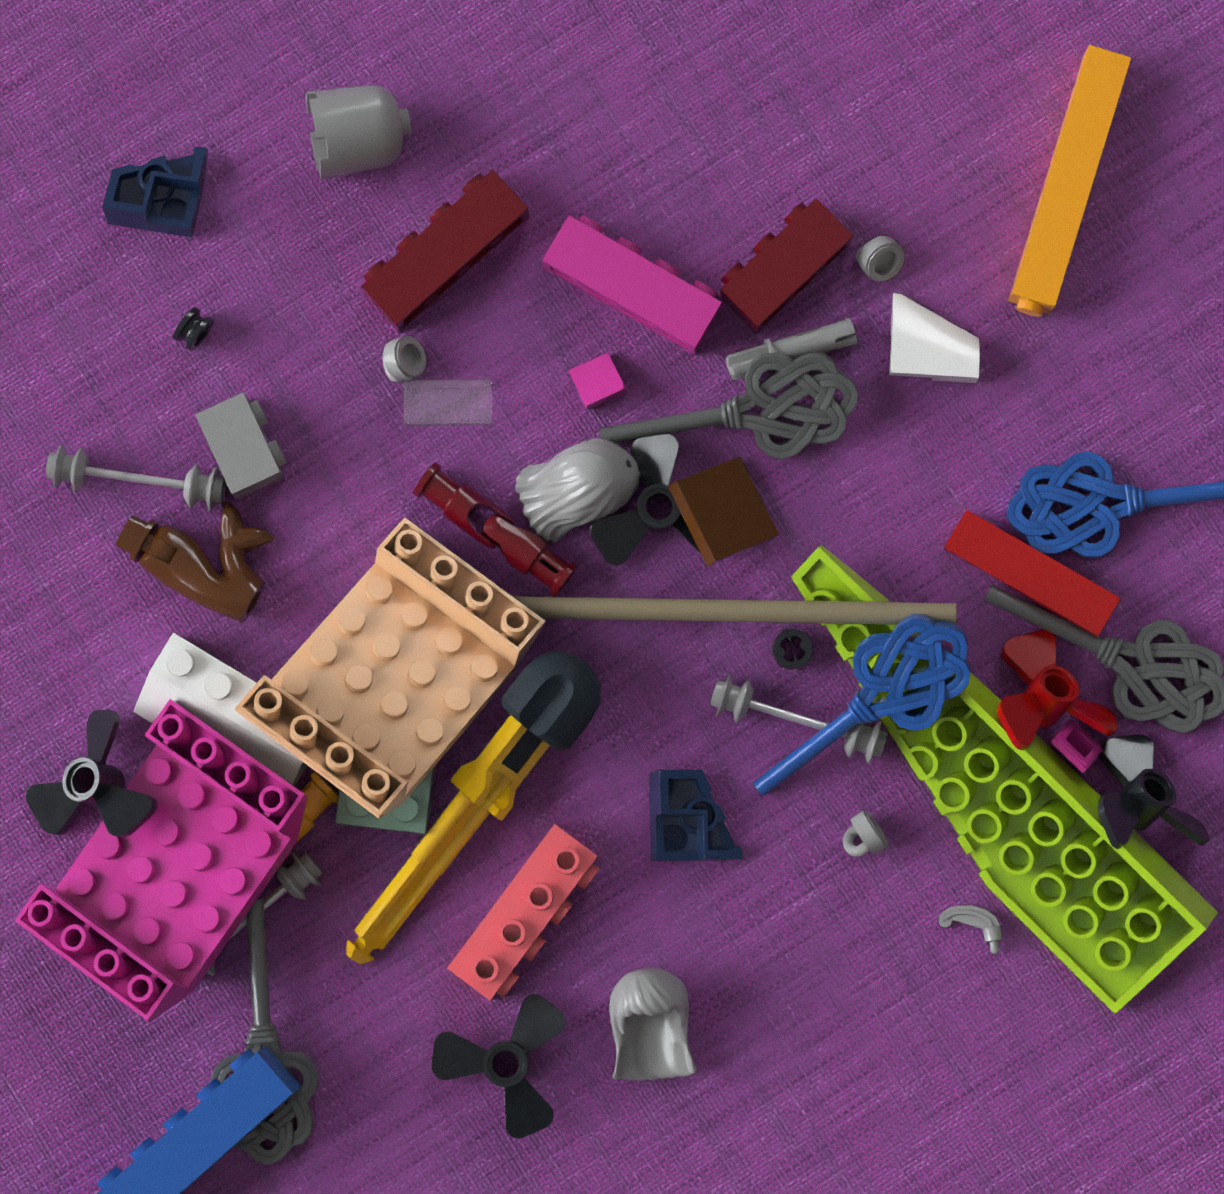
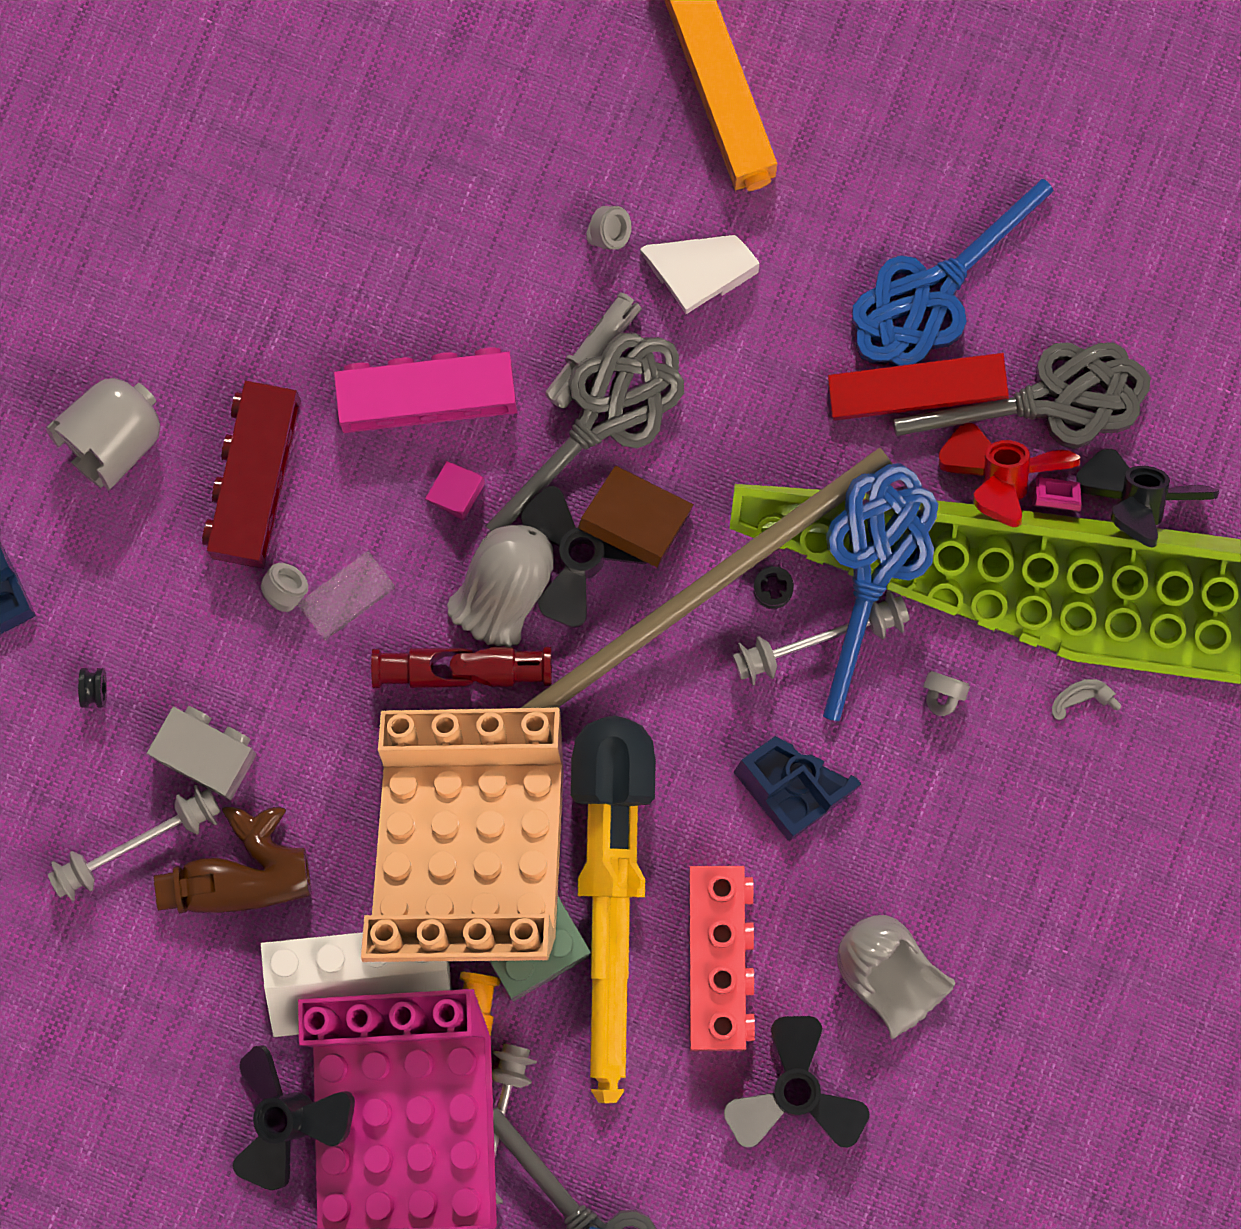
camera: 40 degrees left, 5 degrees down
(784, 264) = (536, 287): dark red brick -> none

